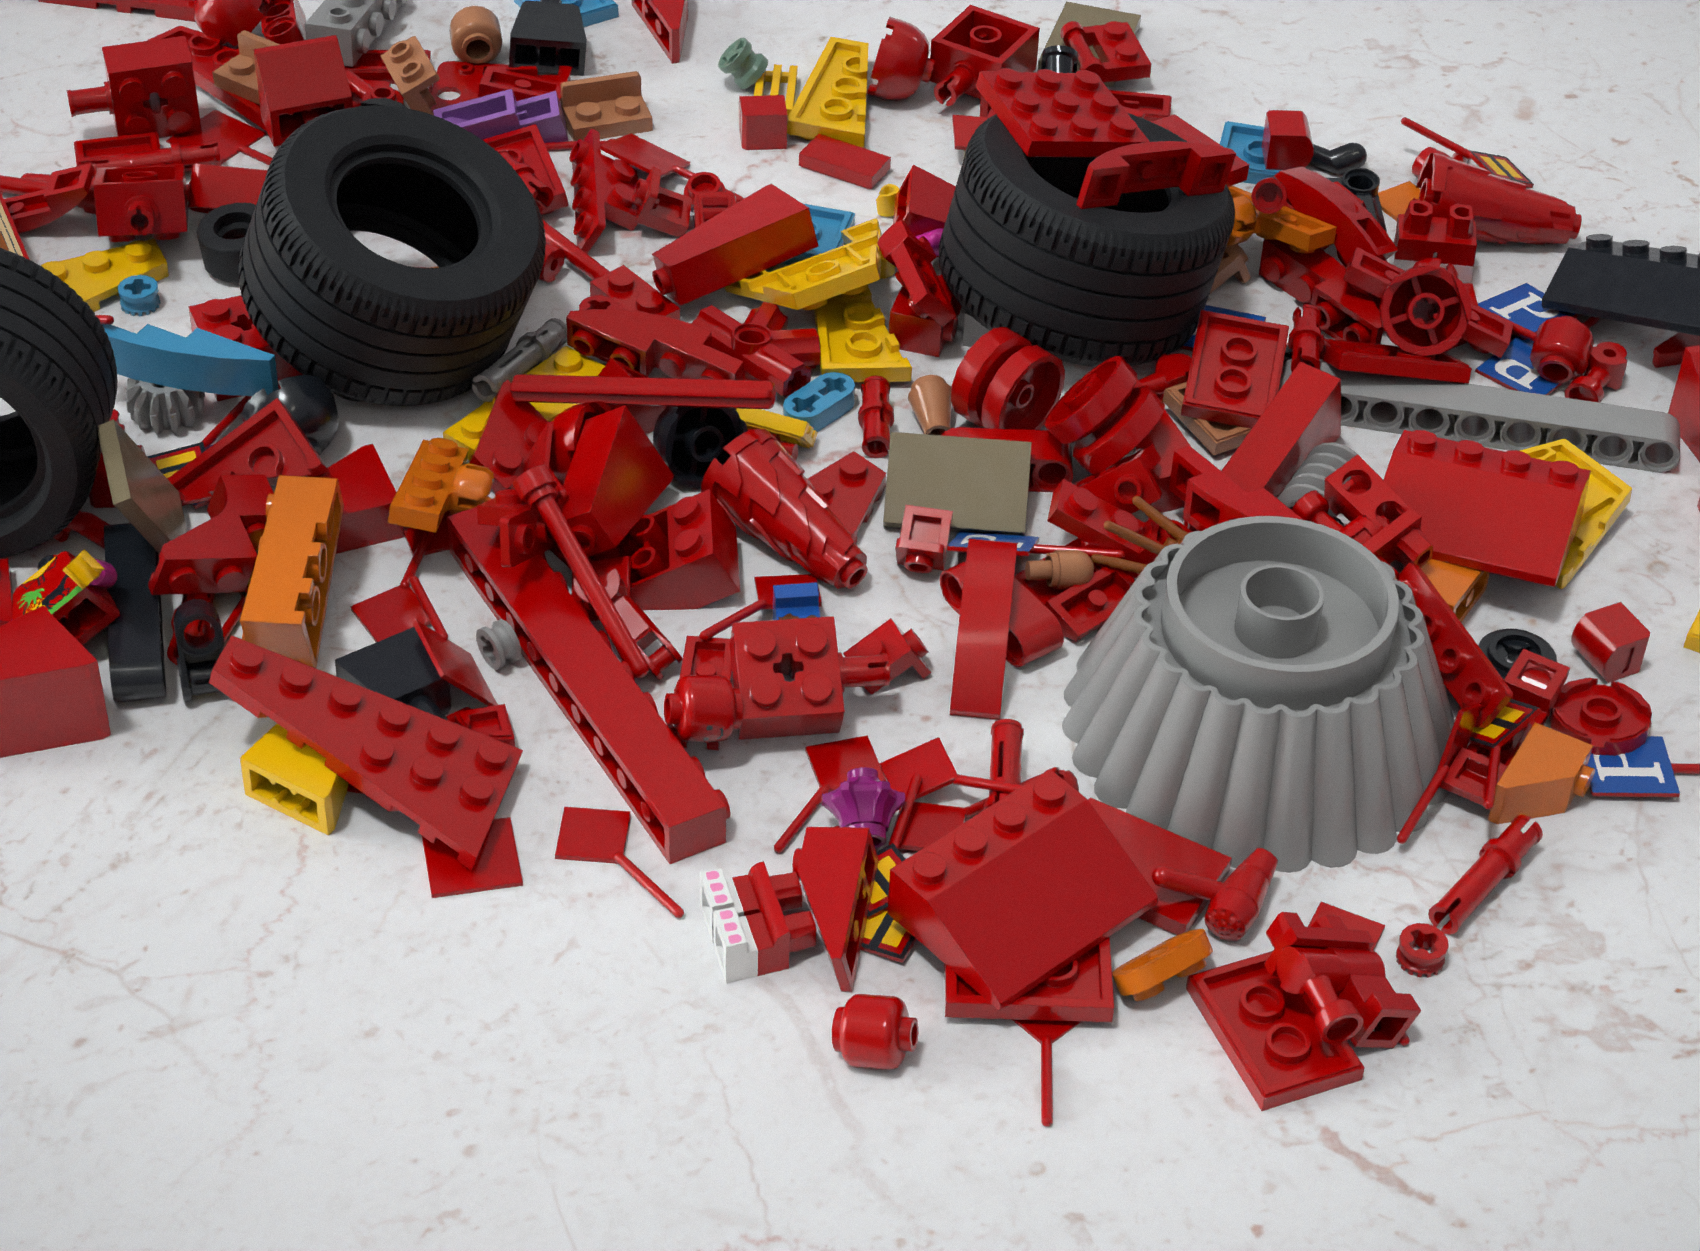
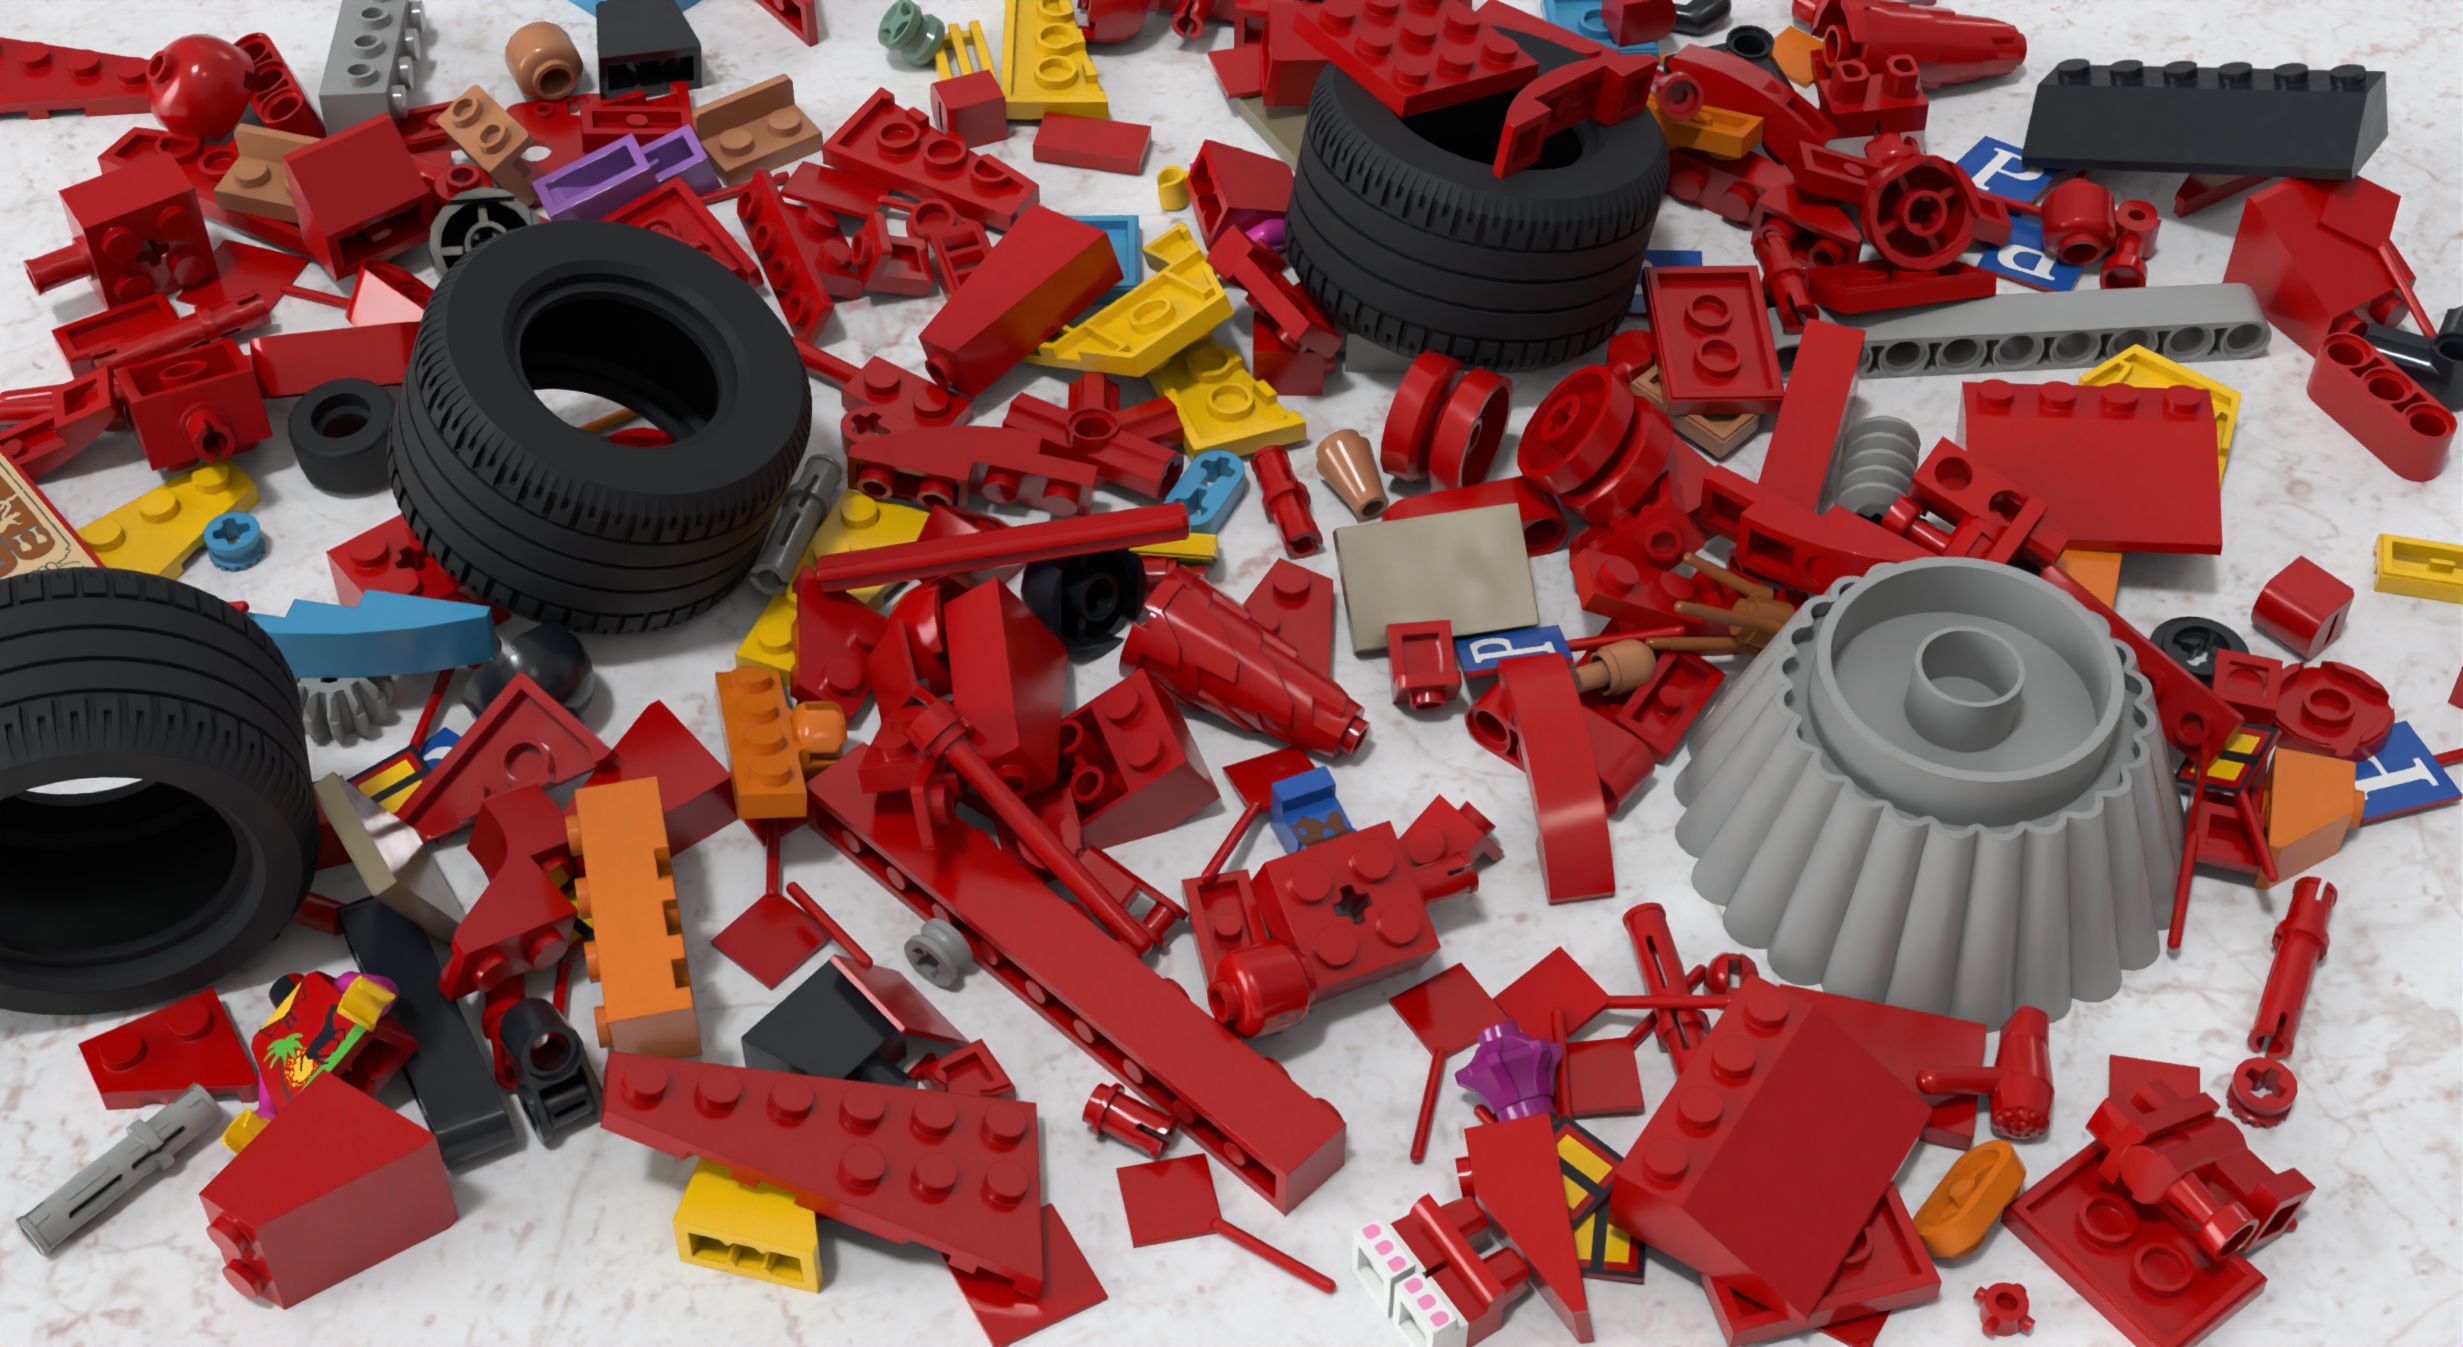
camera: 15 degrees left, 5 degrees up
(574, 768) = (1126, 1118): none -> red pin
(711, 145) = (916, 159): none -> red wing
(1158, 1041) = (2004, 1309): none -> red piece

